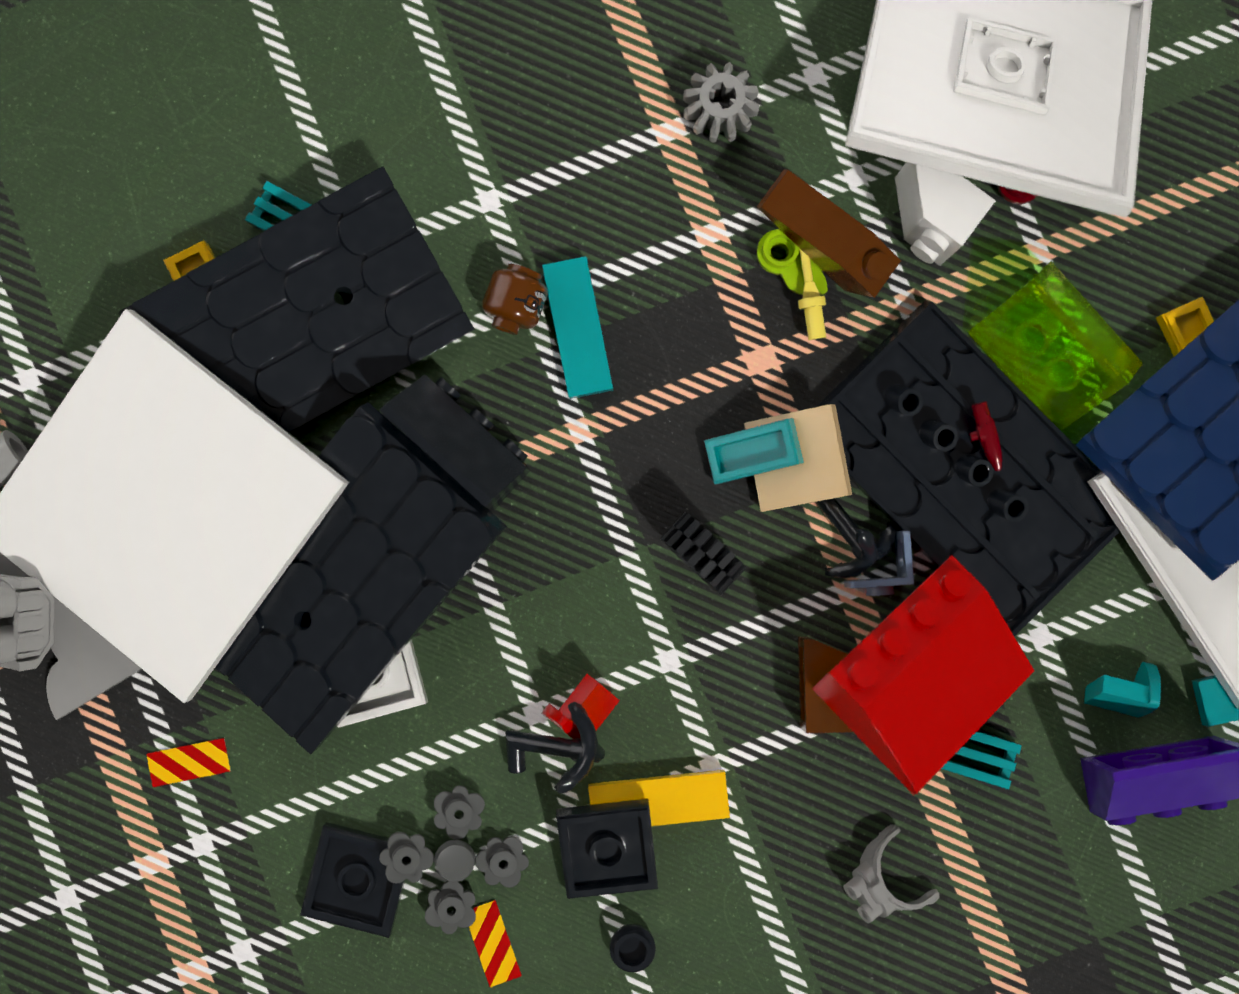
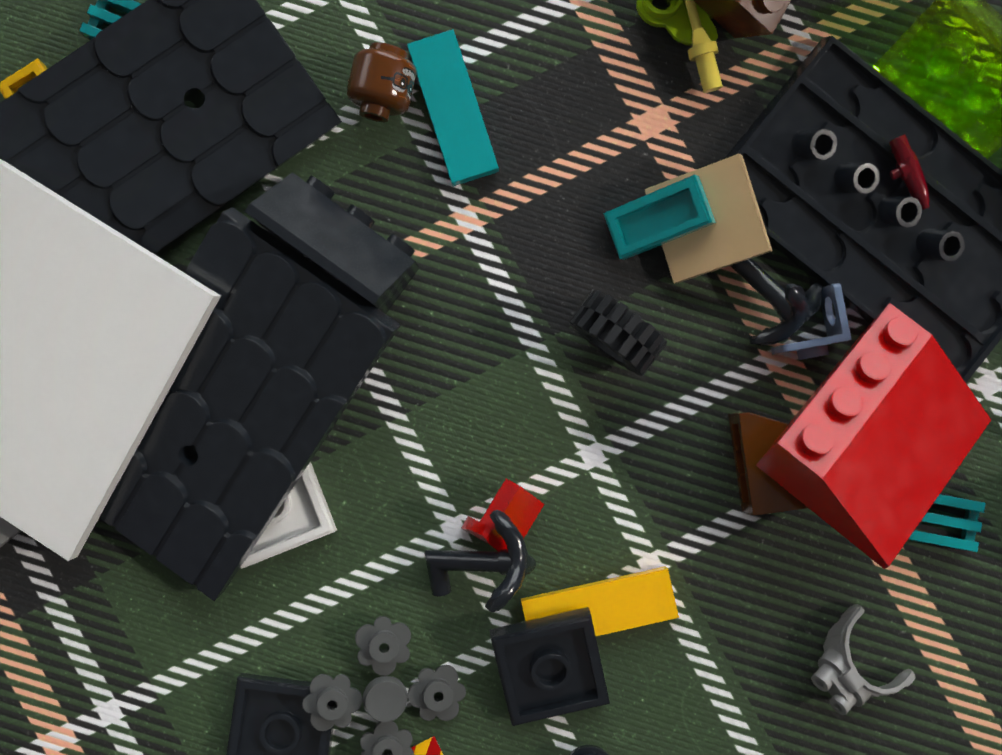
camera: 10 degrees left, 0 degrees up
(188, 762) = (84, 625): sticker -> none

